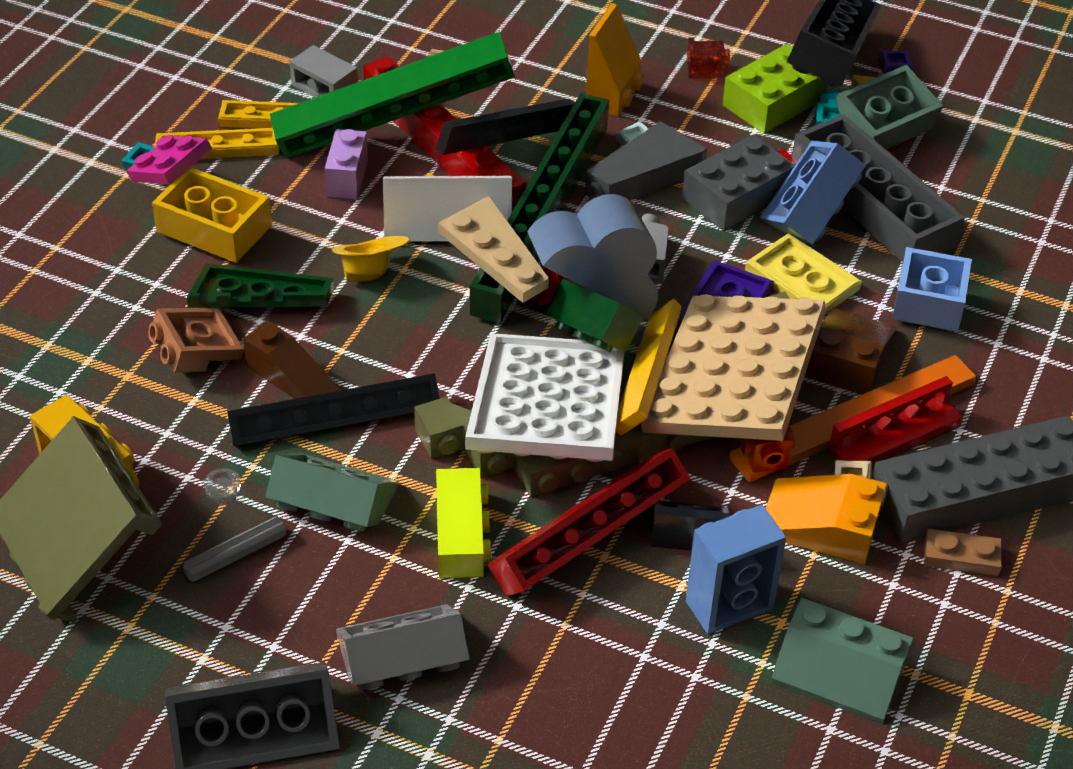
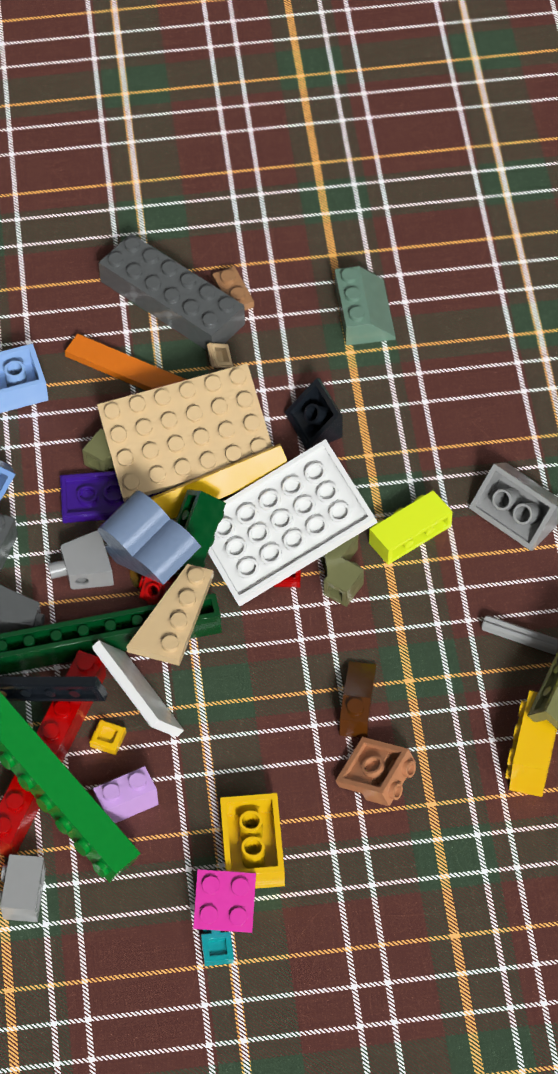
camera: 120 degrees left, 10 degrees up
(222, 485) = (478, 677): clear tile -> none
(235, 142) = (155, 918): yellow tile -> none
(246, 287) = (305, 776): dark green wing -> none
(248, 113) = (95, 908): yellow tile -> none
(330, 490) = (437, 608): sand green slope -> none
(331, 409) = (380, 654): black plate -> none
(368, 259) = (213, 712): yellow piece -> none
(588, 522) = (369, 458): red brick -> none
(735, 568) = (356, 357): medium blue brick -> none
(803, 272) = (38, 465): light yellow tile -> none
(828, 513) = (261, 347): light orange slope -> none
(850, 351) = (78, 404): reddish brown slope -> none
(896, 429) = (156, 353): red fence -> none

